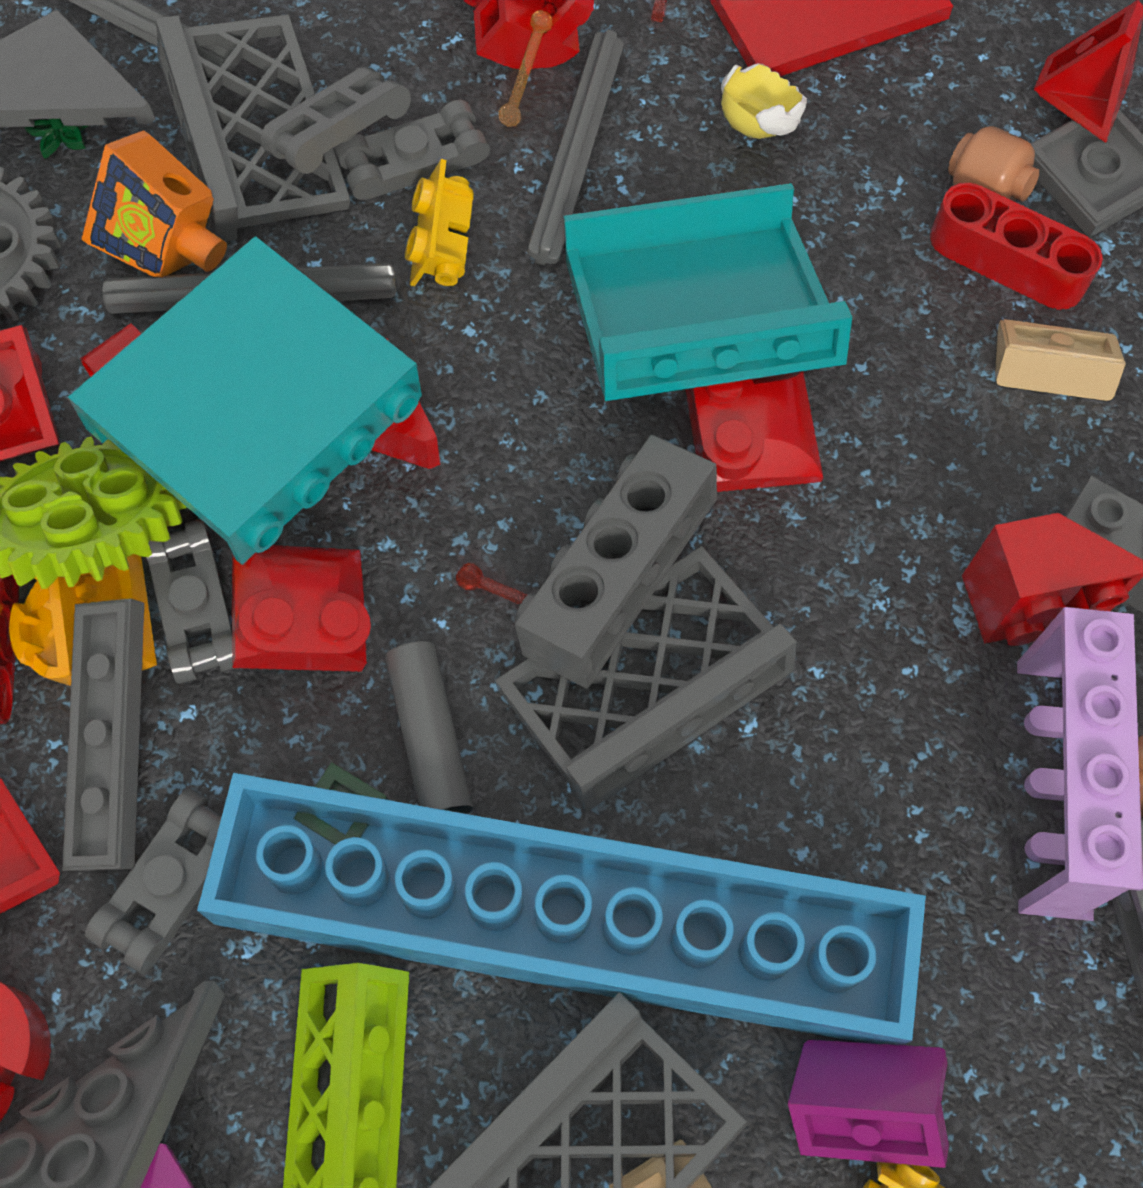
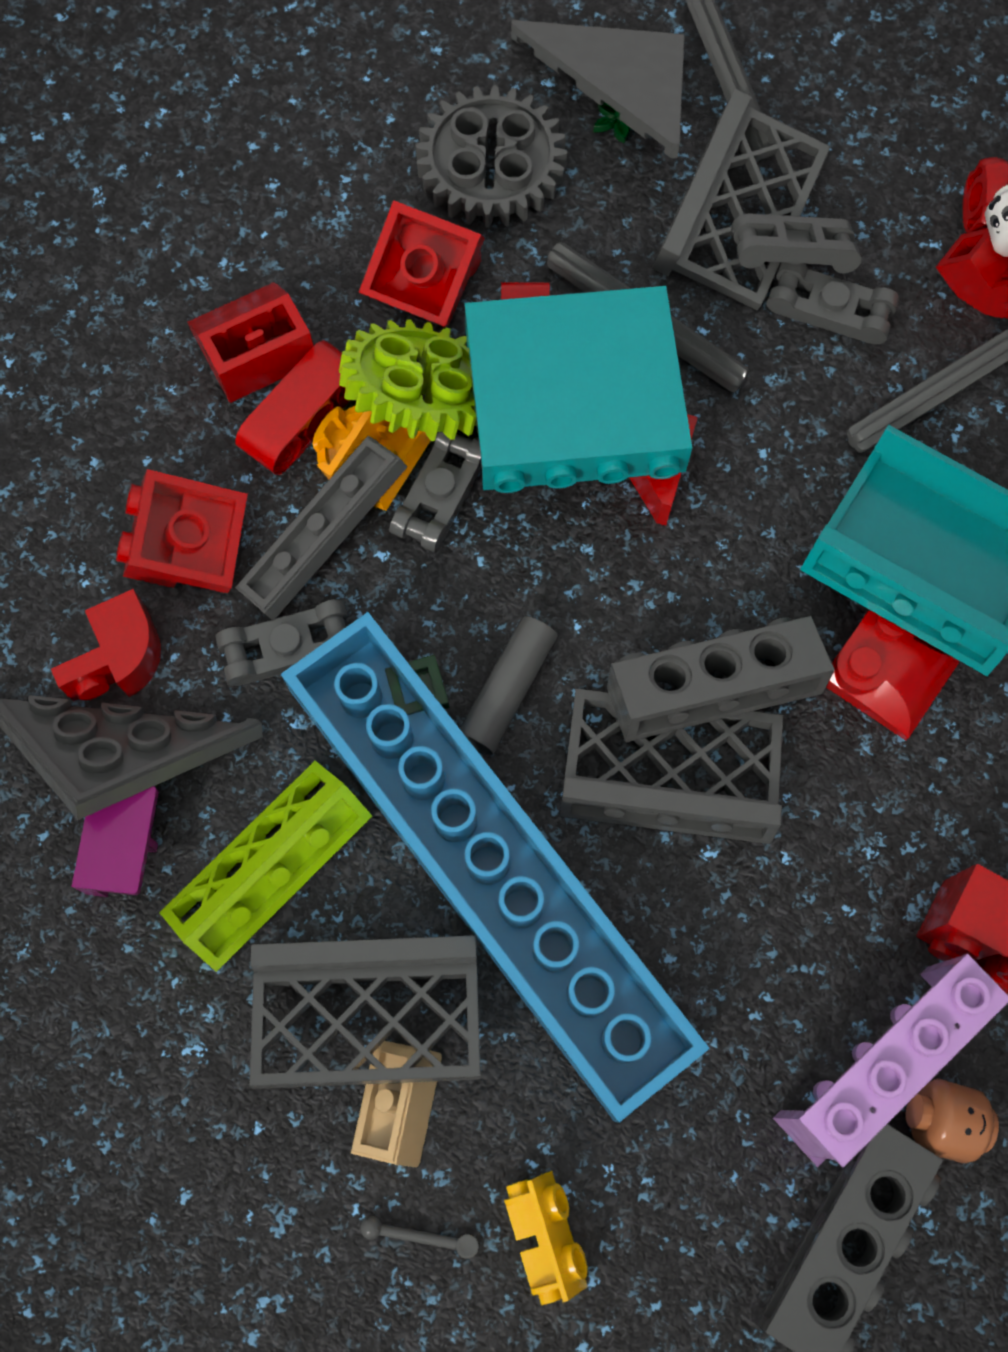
camera: 45 degrees right, 5 degrees up
(151, 210) = (623, 217): orange torso -> none
(299, 610) = (497, 546): red slope -> none
(431, 247) = (787, 379): yellow hinge -> none
(471, 577) = (619, 613): clear red hinge -> none
(510, 113) = (923, 325): clear orange hinge -> none
(870, 1102) = (565, 1135): magenta panel -> none

